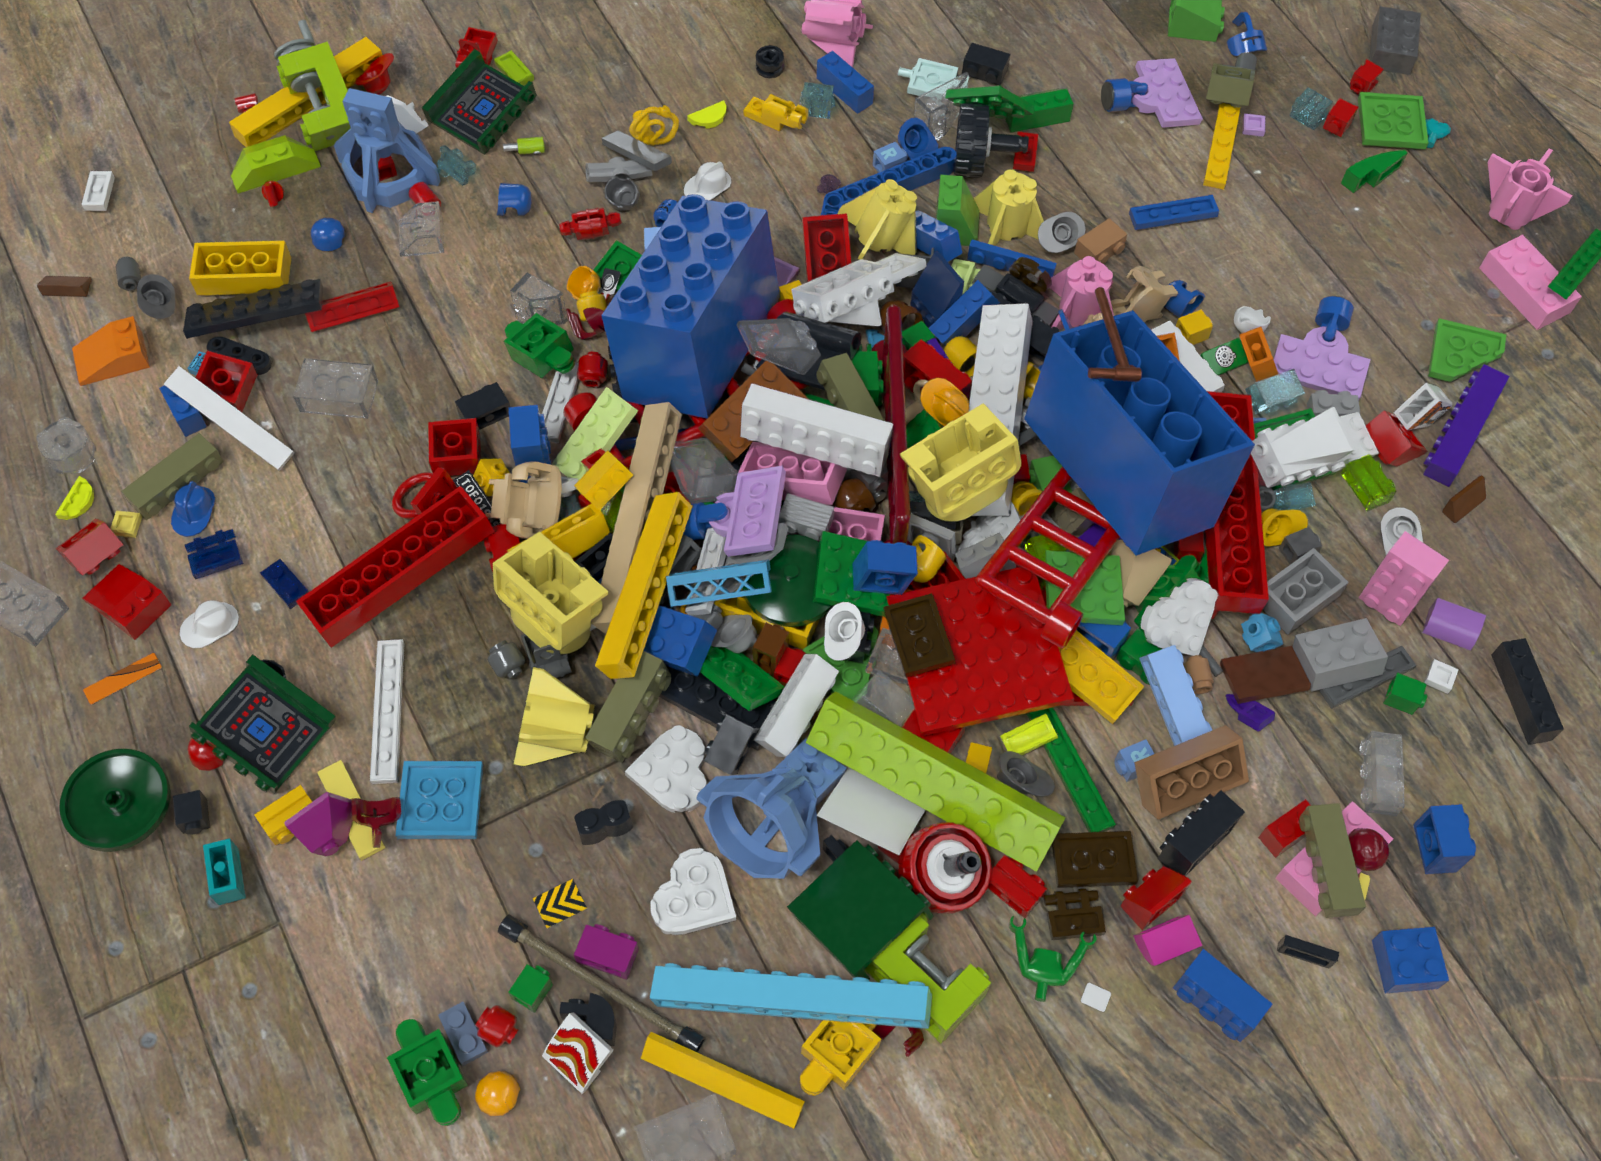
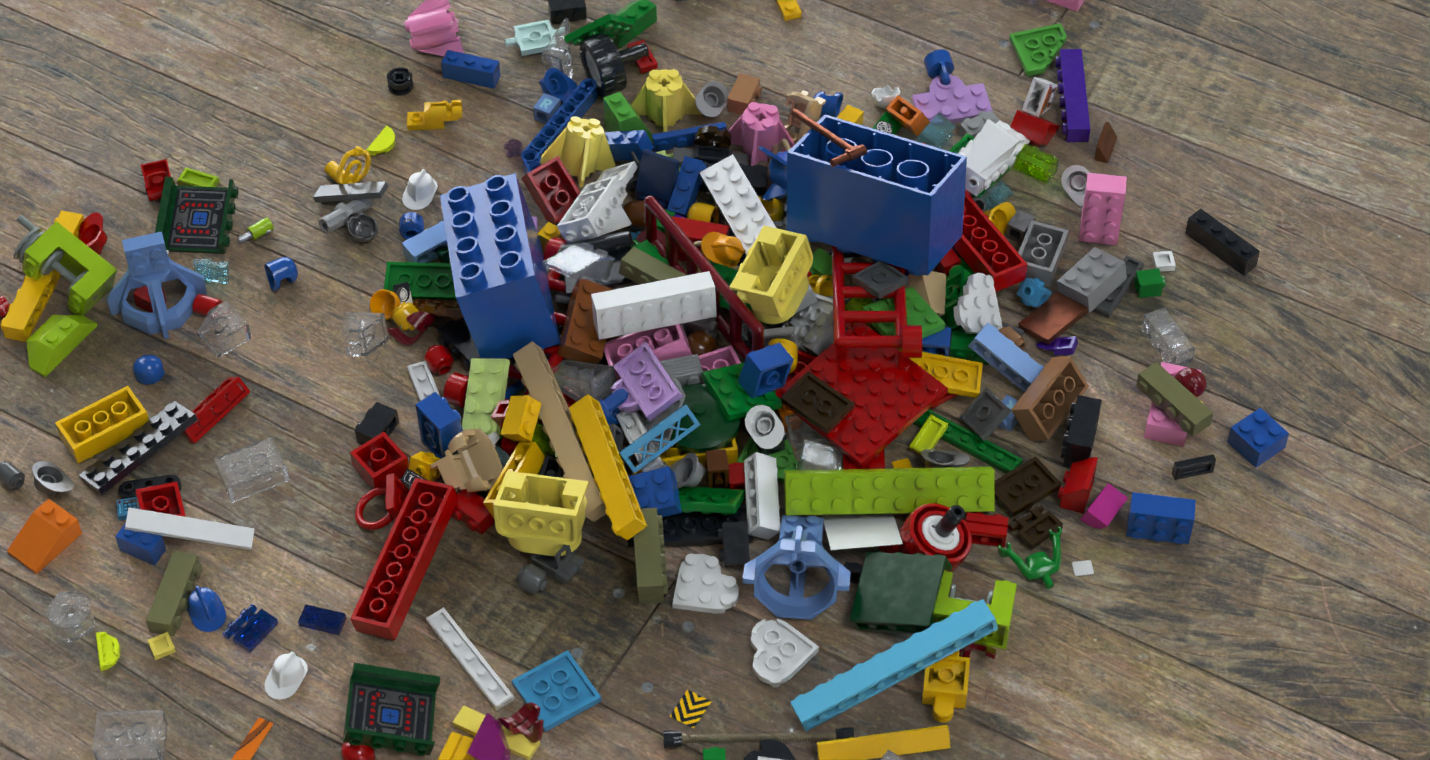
camera: 30 degrees left, 10 degrees down
(90, 547) = (149, 672): red slope -> none
(127, 601) = (209, 692): red slope -> none
(272, 192) = (77, 361): red plate -> none
(539, 346) = (388, 362): green brick -> none
(552, 721) = (601, 594): light yellow brick -> none
(590, 223) = (355, 260): red piece -> none
(606, 951) = (748, 715): magenta brick -> none
(609, 820) = (685, 639): black brick -> none
(818, 99) = (460, 89): clear light blue head -> none
(1082, 530) = (880, 279): none -> dark grey tile
(1106, 748) = (985, 414): none -> dark grey tile
(1173, 212) = (779, 49): blue plate -> none
(1284, 831) = (1132, 404): red brick -> none
(1444, 839) = (1231, 355): blue brick -> none
(1453, 624) = (1149, 224): medium lavender brick -> none

